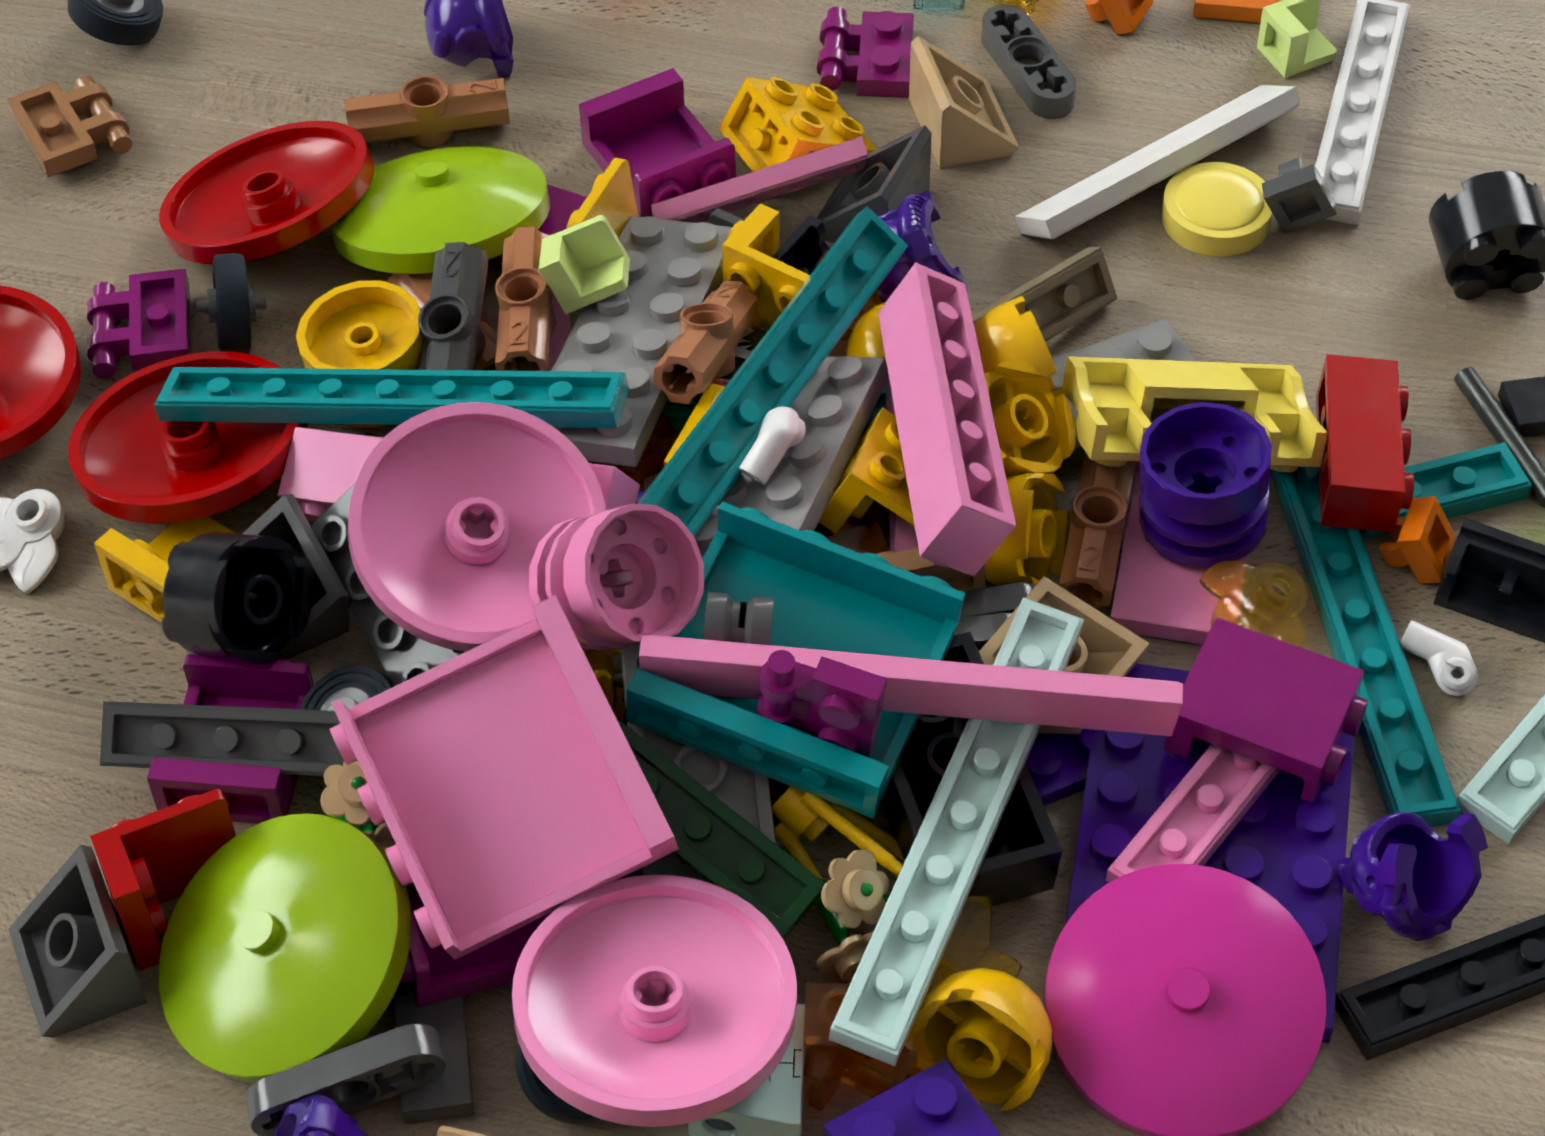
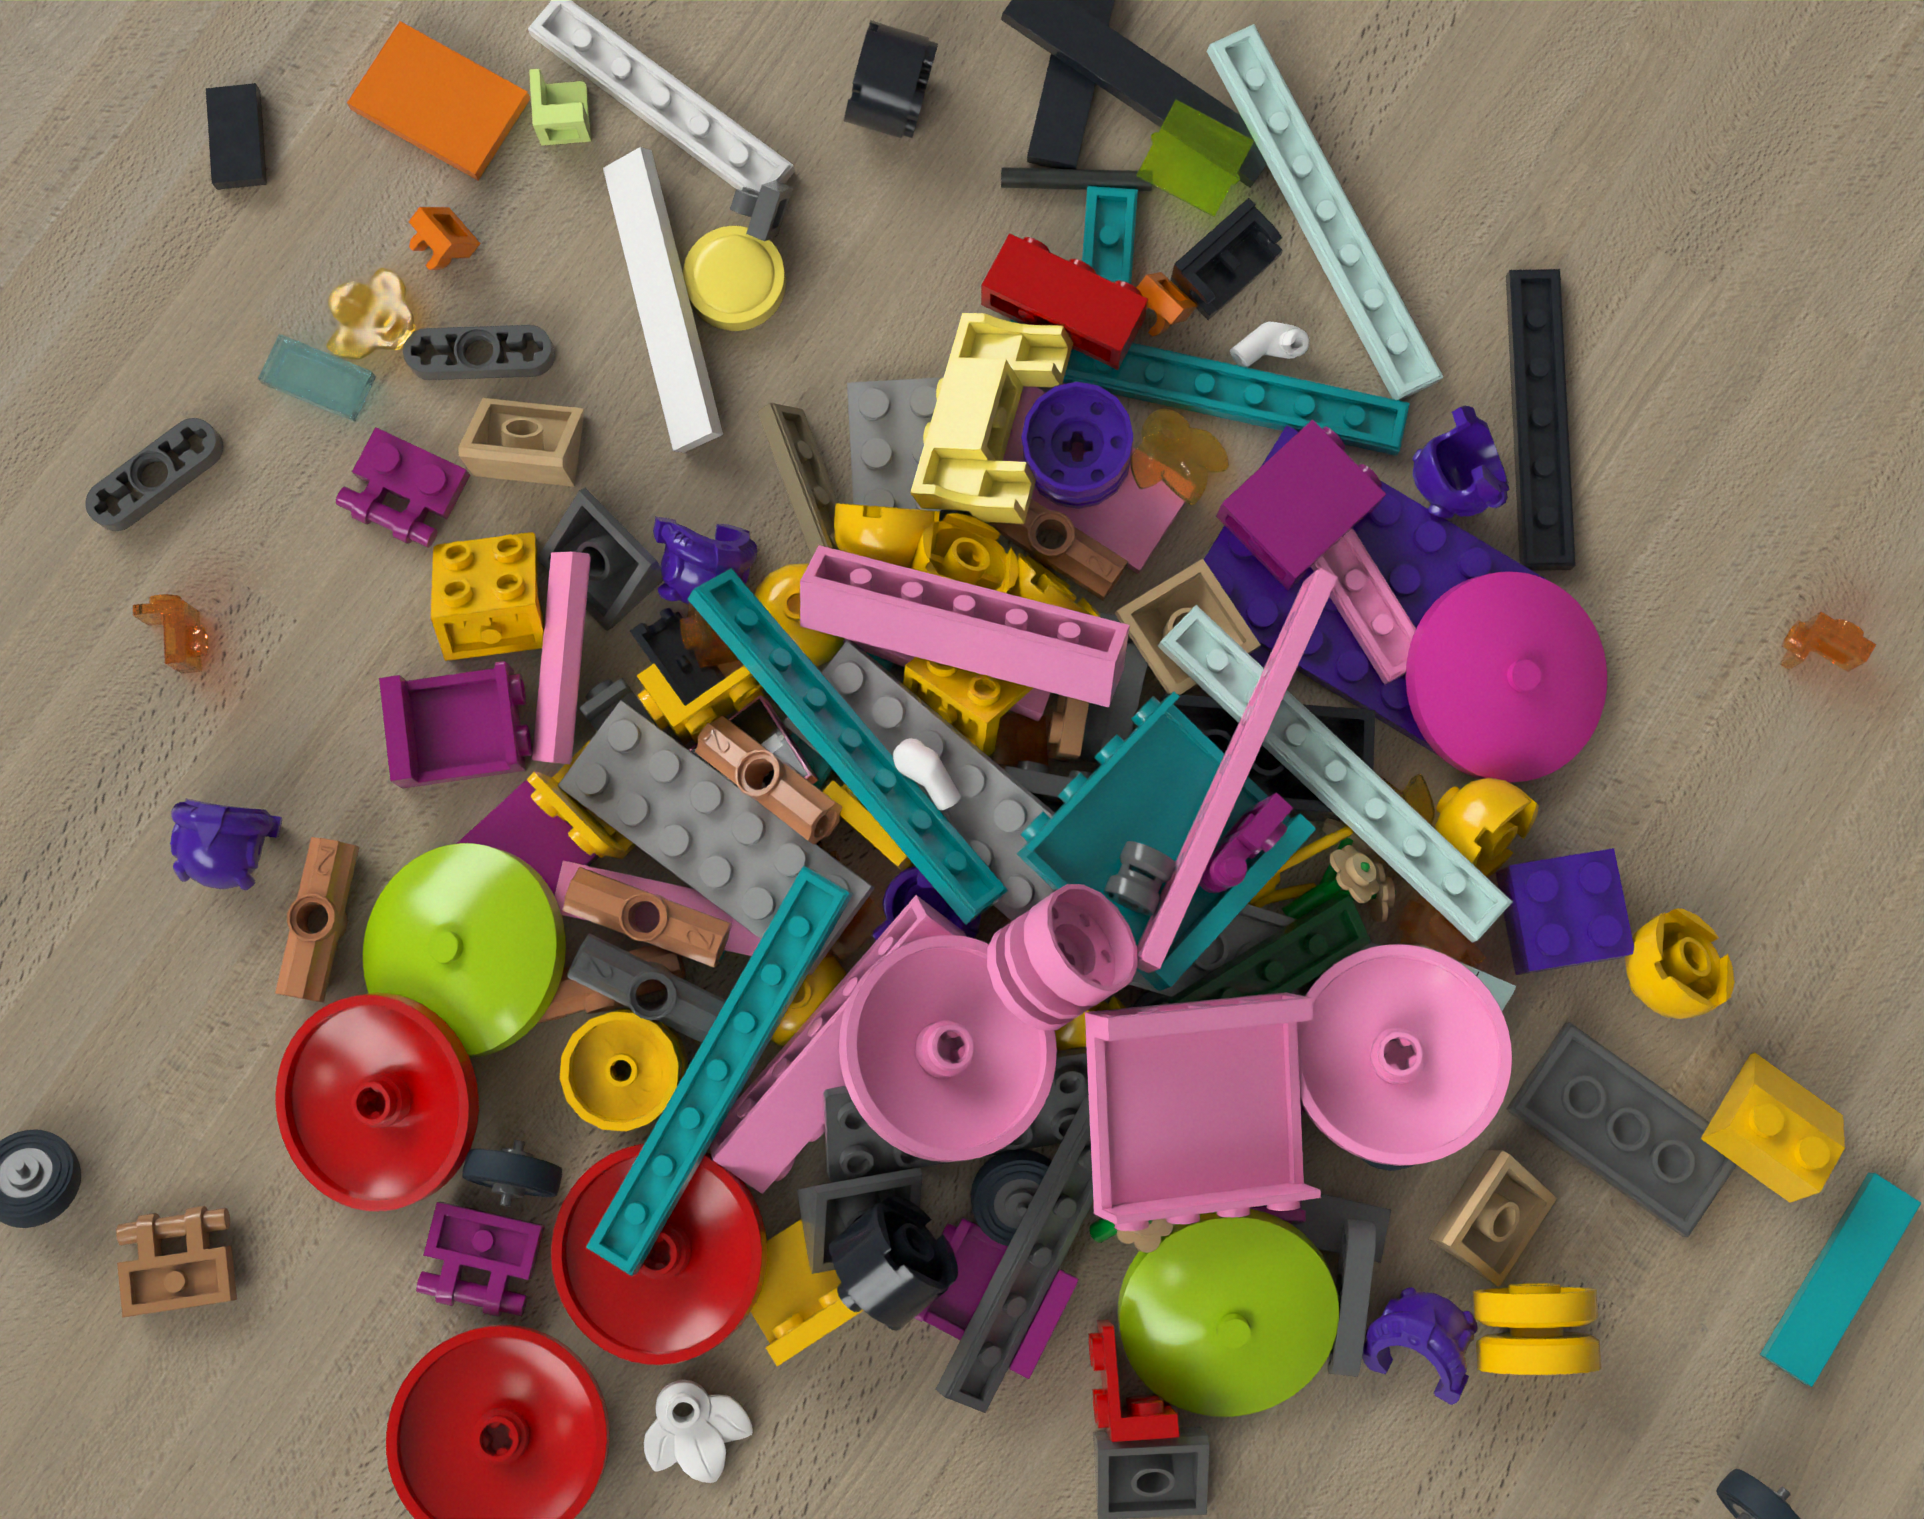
camera: 70 degrees left, 30 degrees up
(584, 263) = (640, 852): yellowish green panel -> none

